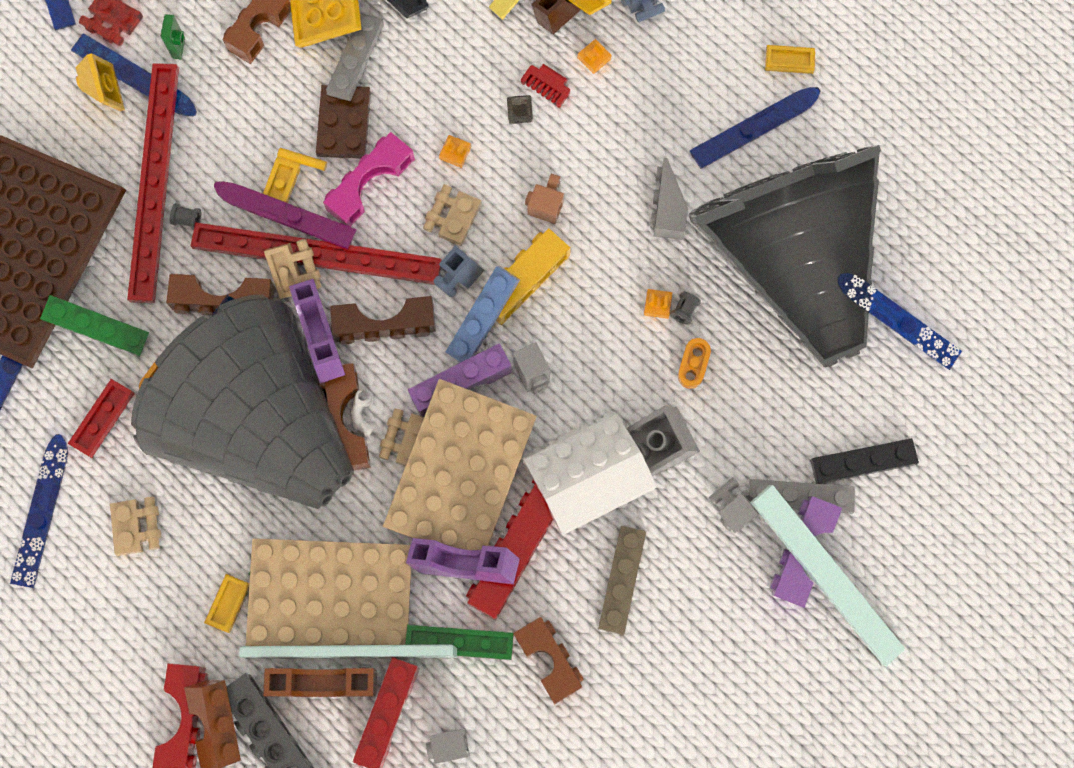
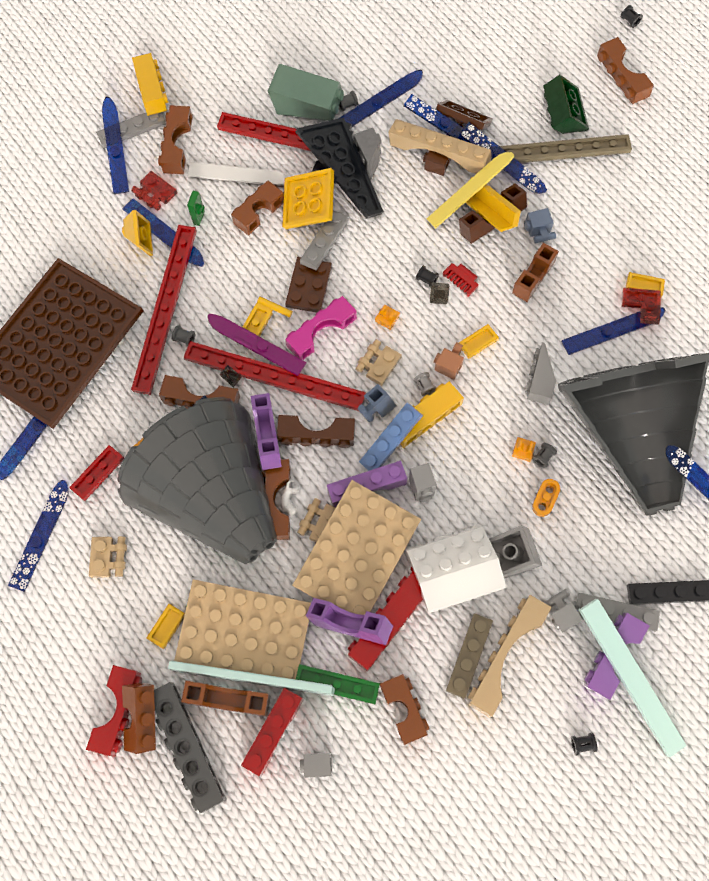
camera: 10 degrees right, 5 degrees down
(94, 325) = (104, 404): green plate -> none
(256, 262) = (230, 376): none -> clear smoke slope
(285, 269) = (249, 382): tan plate -> none
(500, 88) = (427, 276): none -> black bush
(517, 235) = (425, 383): none -> light grey bush
(580, 167) = (478, 341): none -> yellow tile
(594, 56) = (499, 263): light orange tile -> none
(644, 63) = (536, 272): none -> dark orange arch
(652, 623) = (488, 693): none -> tan arch
(785, 660) = (590, 746): none -> black bush
(792, 80) = (647, 300): none -> clear red plate

